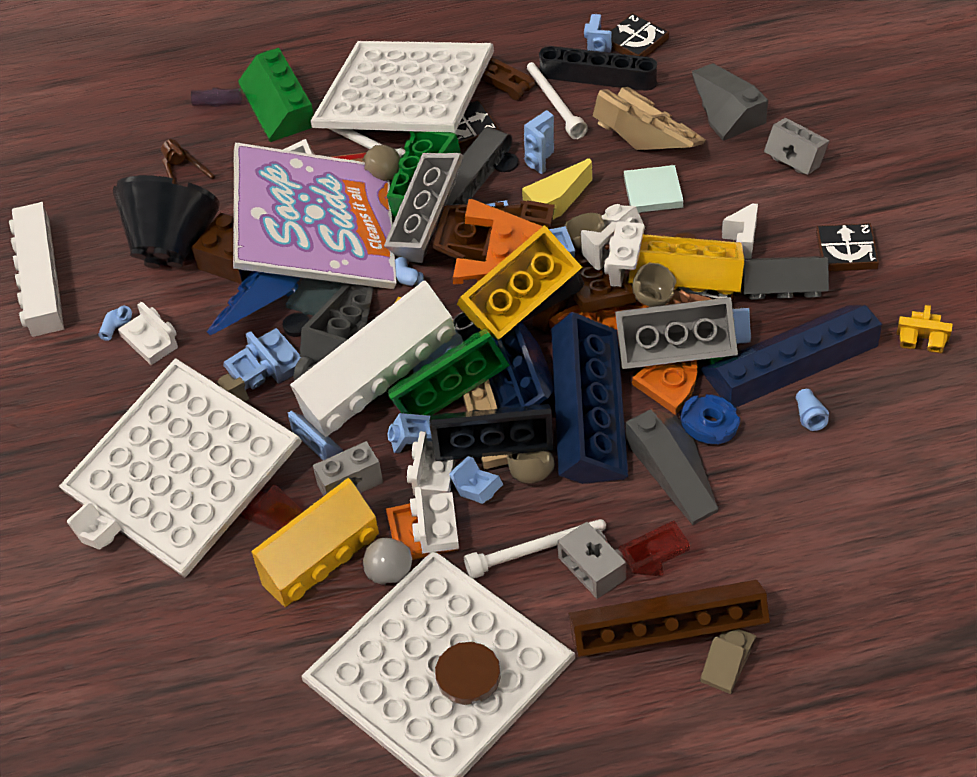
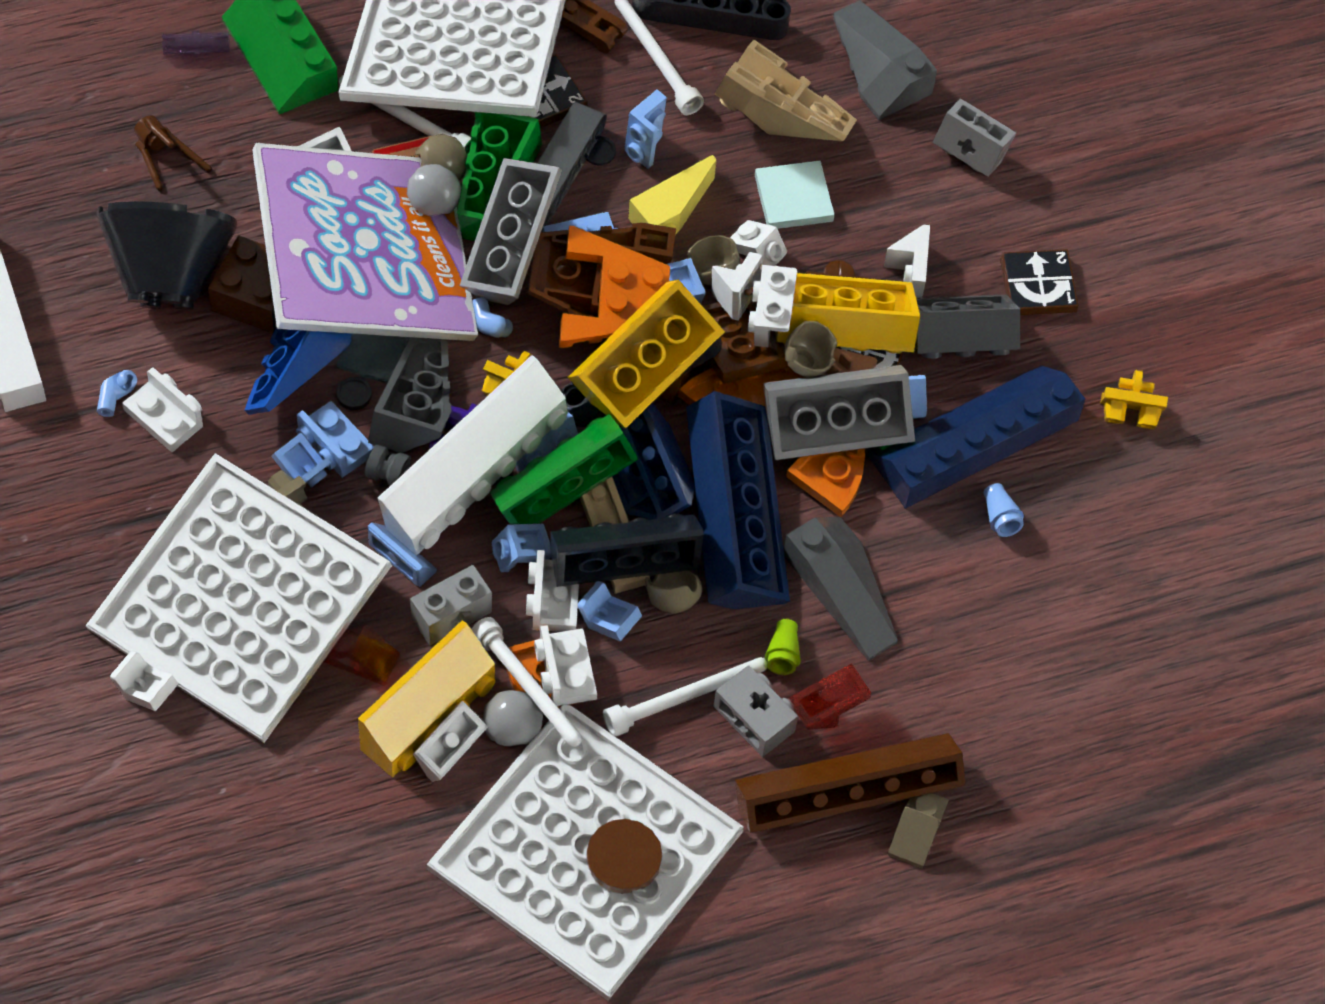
camera: 15 degrees left, 10 degrees up
(331, 577) = (449, 741): none -> white slope
(371, 180) = (434, 190): none -> light grey hair
(377, 499) = (491, 638): none -> white piece
(619, 514) = (783, 650): none -> lime cone
(705, 430) = (879, 539): blue tile -> none

